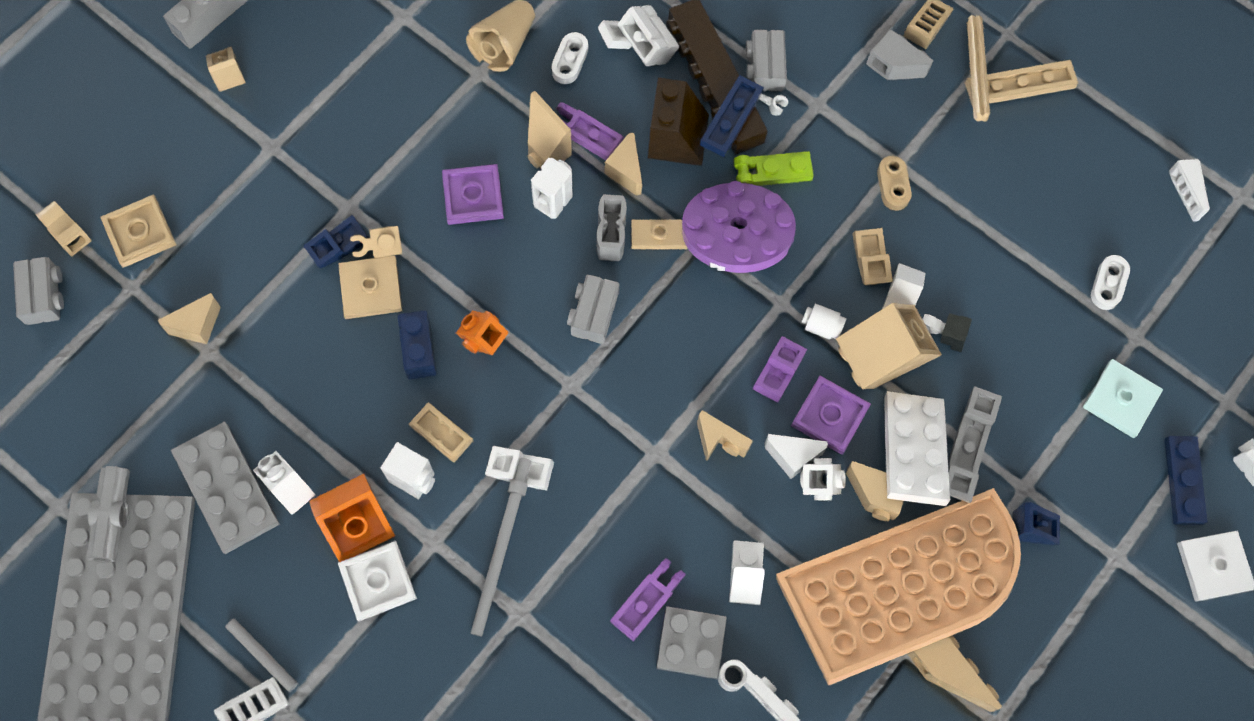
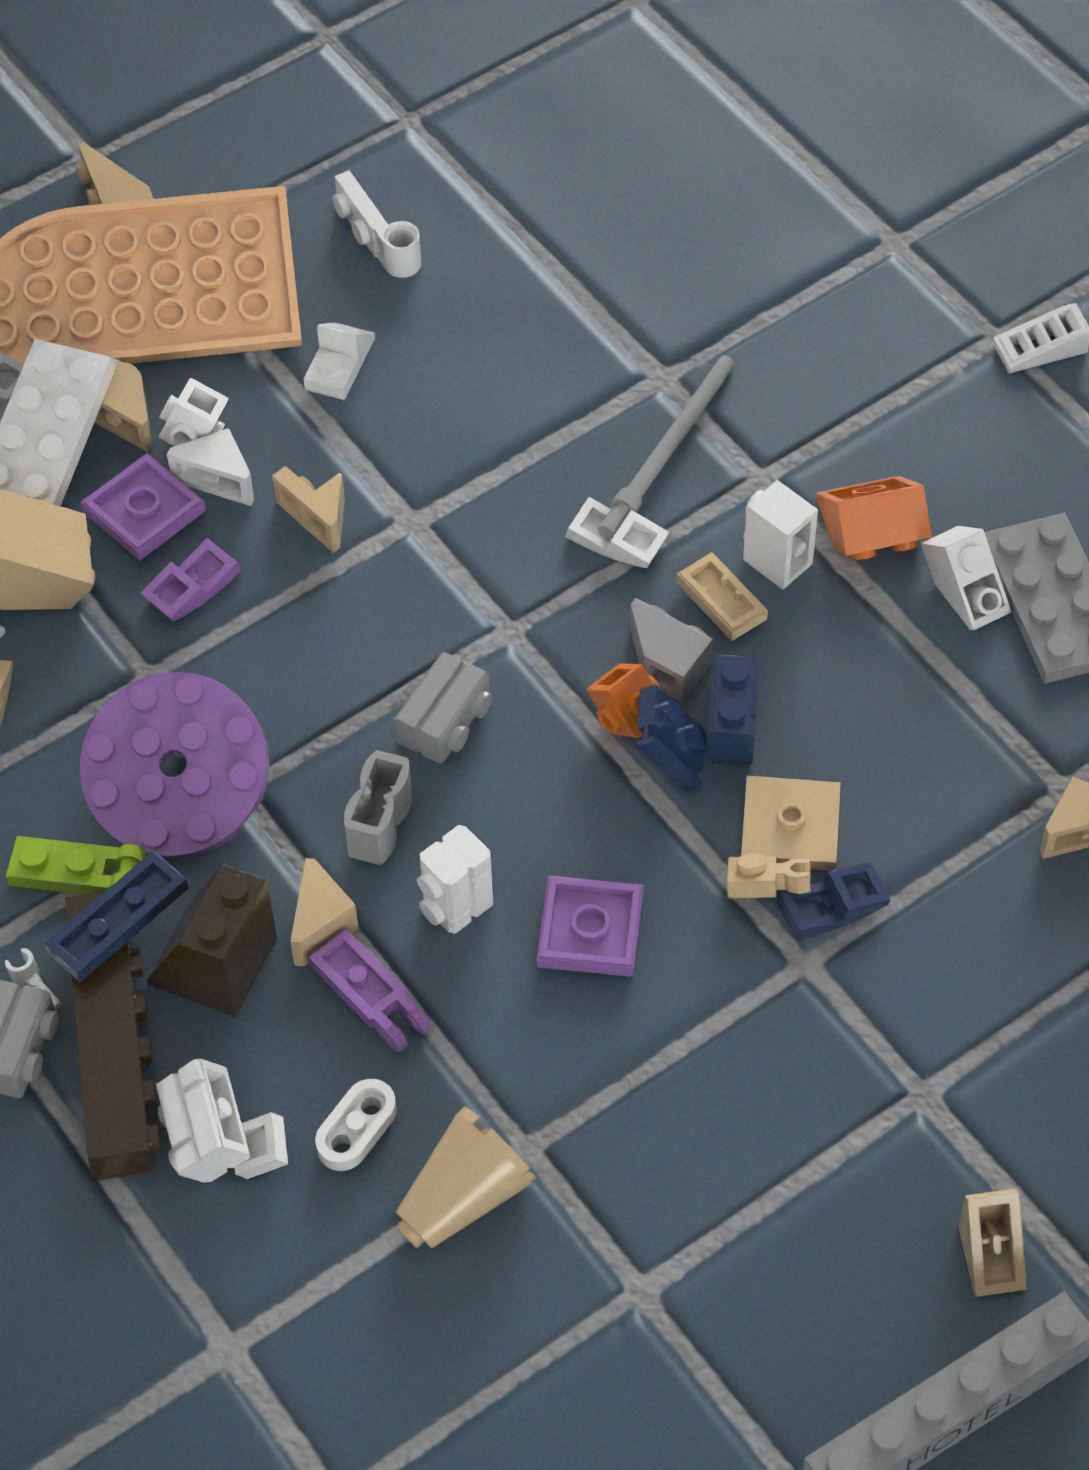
camera: 160 degrees left, 15 degrees down
(261, 655) = (1023, 395): light grey bar -> none
(377, 581) = (850, 439): white plate -> none
(449, 307) = (671, 737): none -> dark blue plate
(465, 379) = (669, 649): none -> light grey slope
(546, 133) = (441, 973): tan slope -> none
(645, 602) = (483, 349): medium lavender hinge -> none
(657, 234) = (303, 806): tan plate -> none
(691, 642) = (441, 300): light grey plate -> none
(823, 321) = (99, 620): white brick -> none

